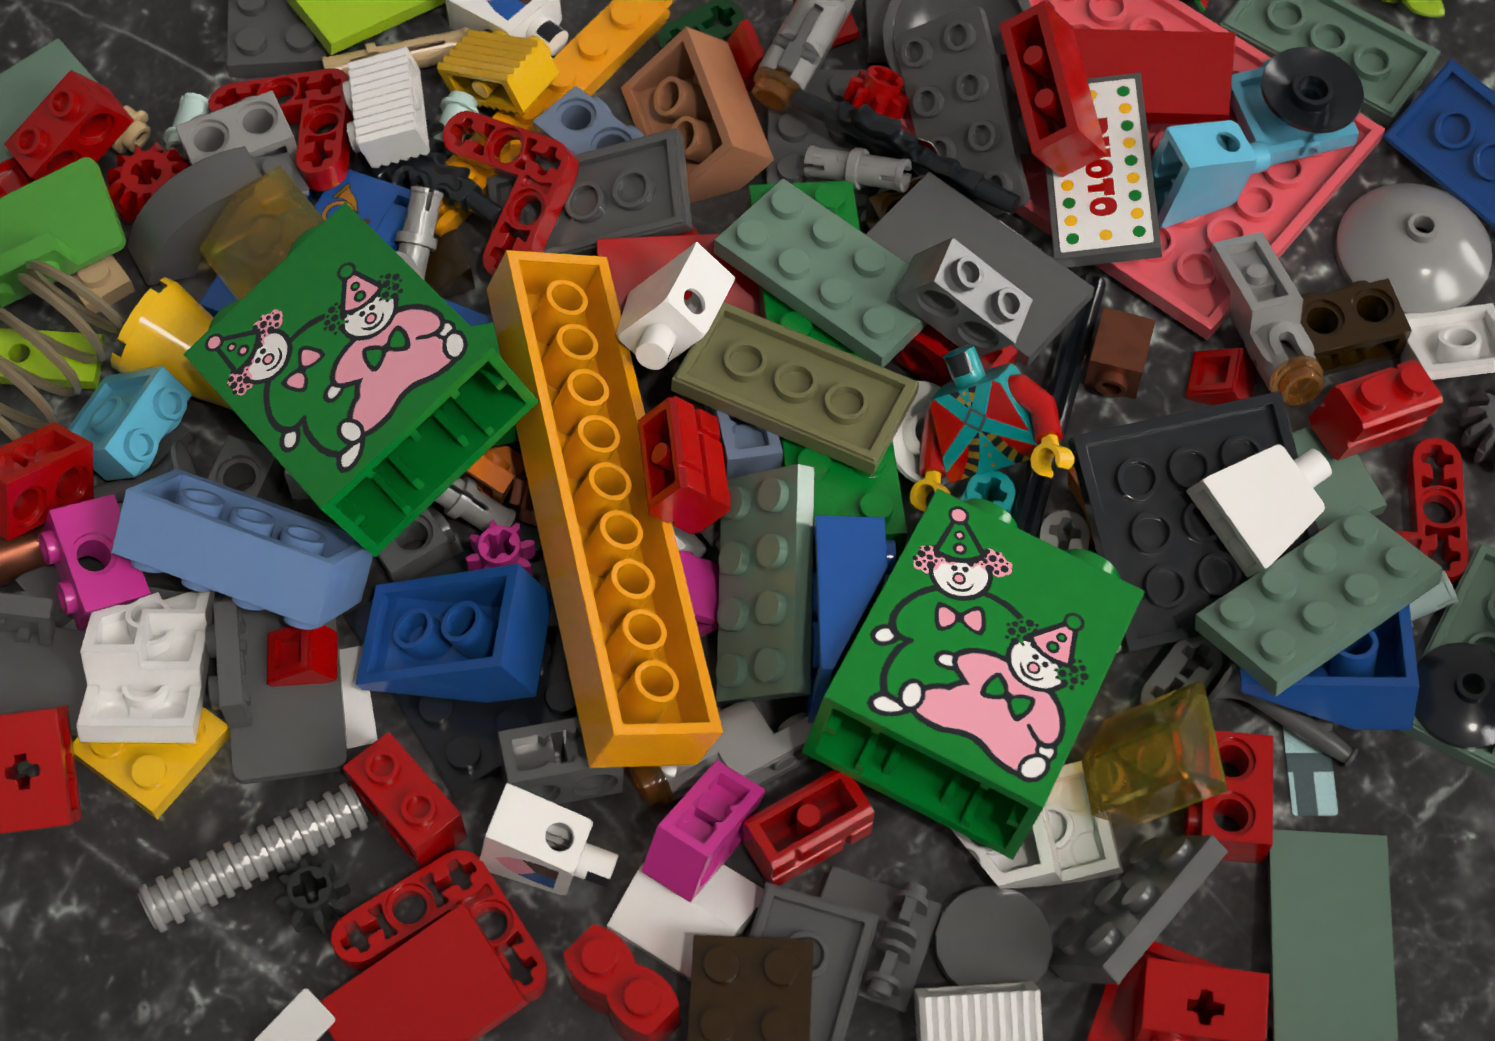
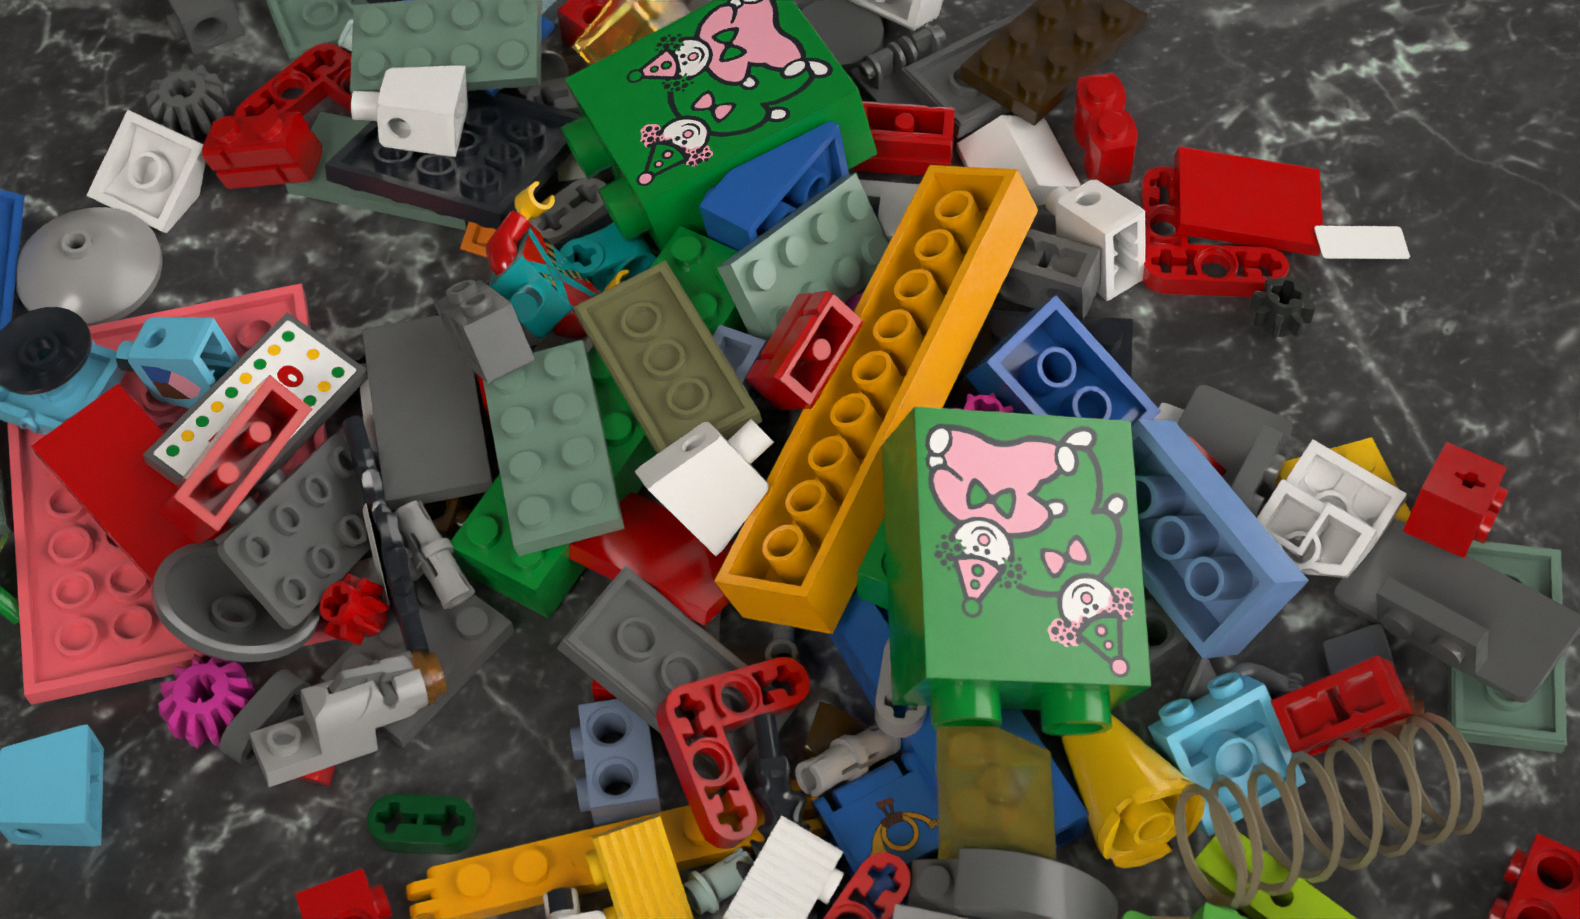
camera: 140 degrees left, 5 degrees down
(89, 531) = (1319, 630): dark pink brick -> none
(252, 857) = (1312, 360): light grey piece -> none
(405, 801) = (1175, 323): red brick -> none
(702, 830) = (987, 144): dark pink brick -> none
(703, 96) = (508, 726): nougat slope -> none
(746, 52) = (414, 762): red slope -> none
(1119, 353) = (380, 302): copper brick -> none
(1220, 376) = (327, 264): red slope -> none
(1268, 317) = (258, 248): light grey plate -> none
(1349, 338) = (209, 229): dark brown brick -> none

